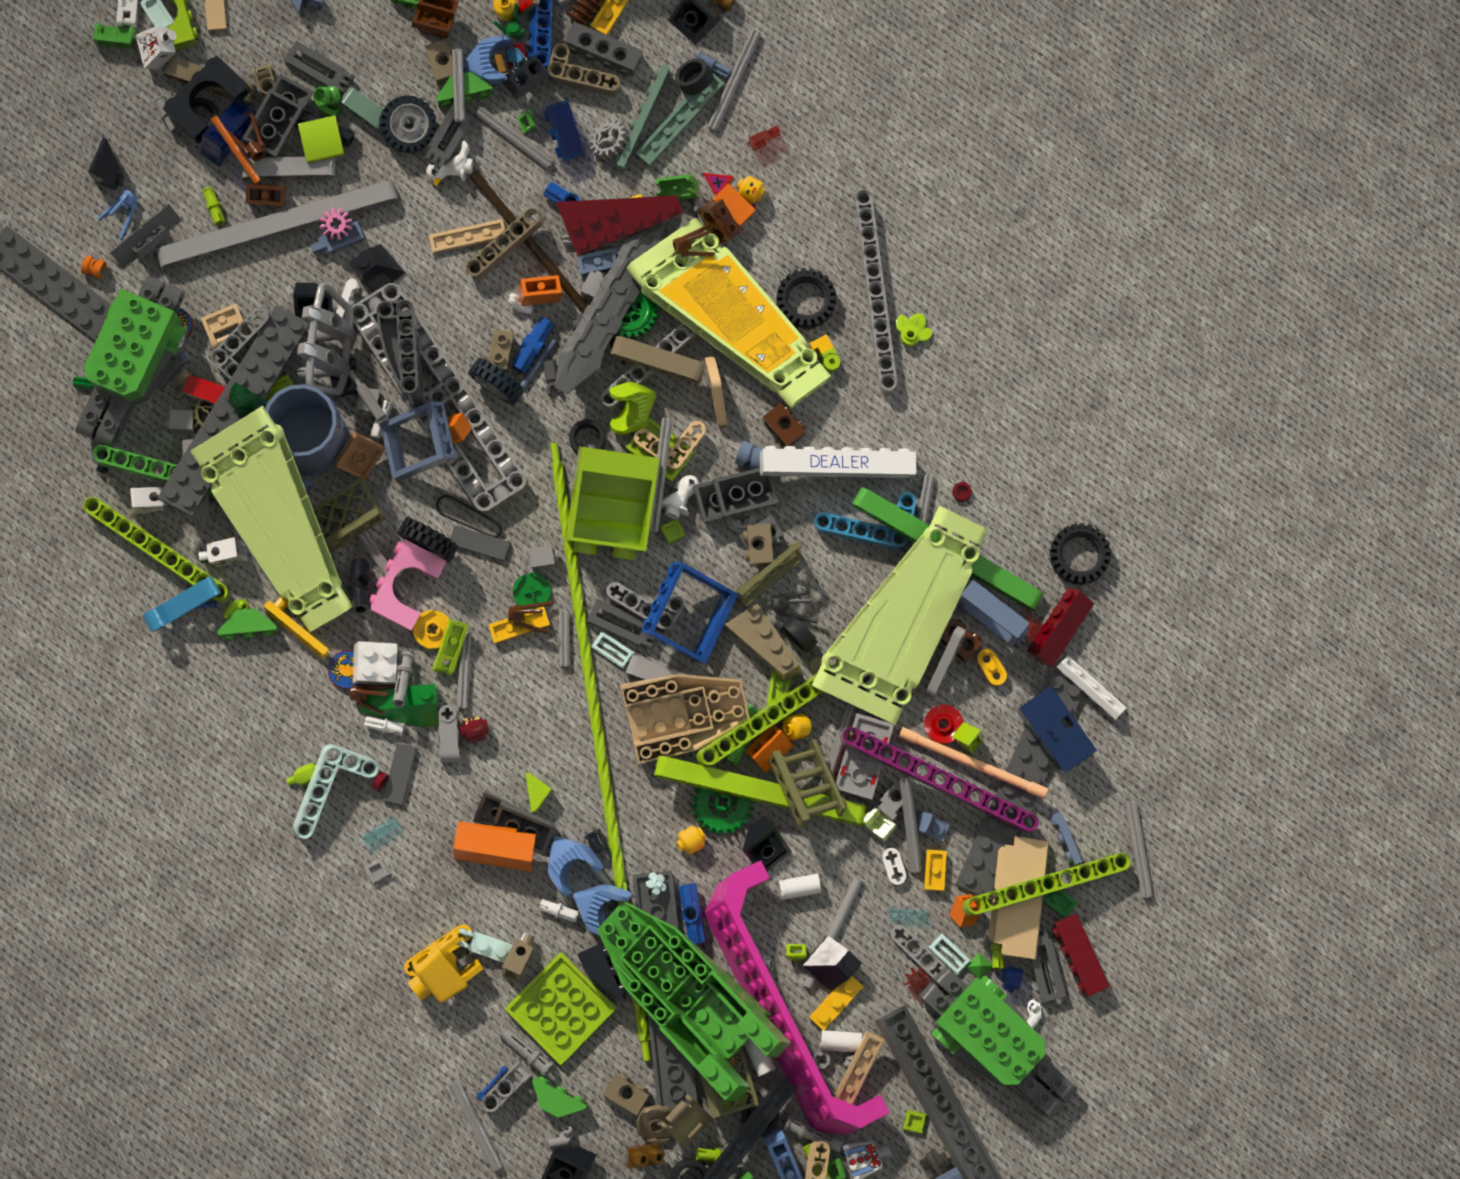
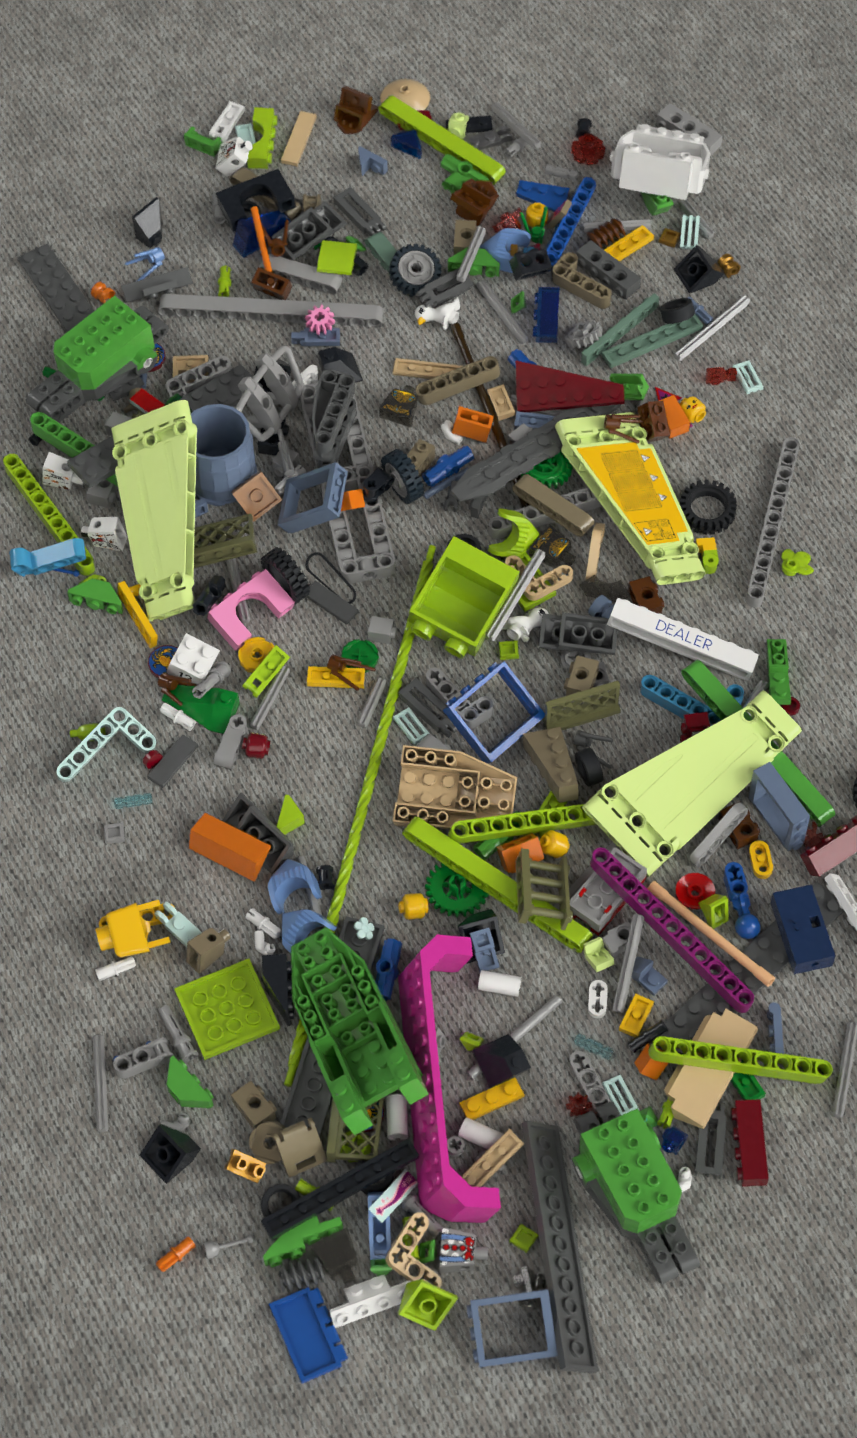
camera: 25 degrees right, 20 degrees down
(326, 96) = (355, 229): bright green wheel -> none
(437, 1010) = (115, 968): none -> white axle
(457, 292) = (400, 406): none -> clear smoke torso
(475, 398) = (376, 485): none -> black piece
(479, 26) = (508, 220): none -> clear red plant
(556, 250) = (501, 402): none -> tan plate
(566, 932) = (262, 946): none -> white arm
(673, 403) = (555, 547): none -> clear smoke torso
(733, 432) = (595, 587): none -> clear smoke tile
(774, 861) = (484, 950): none -> sand blue slope
(789, 1135) = (393, 1196): none -> sticker
(801, 138) = (759, 386): none -> light aqua tile
(885, 559) = (693, 725): none -> dark red window
(939, 461) = (778, 671): none -> bright green slope
(953, 888) = (647, 1036): none -> black pin
(1003, 741) = (746, 925): none -> blue beam

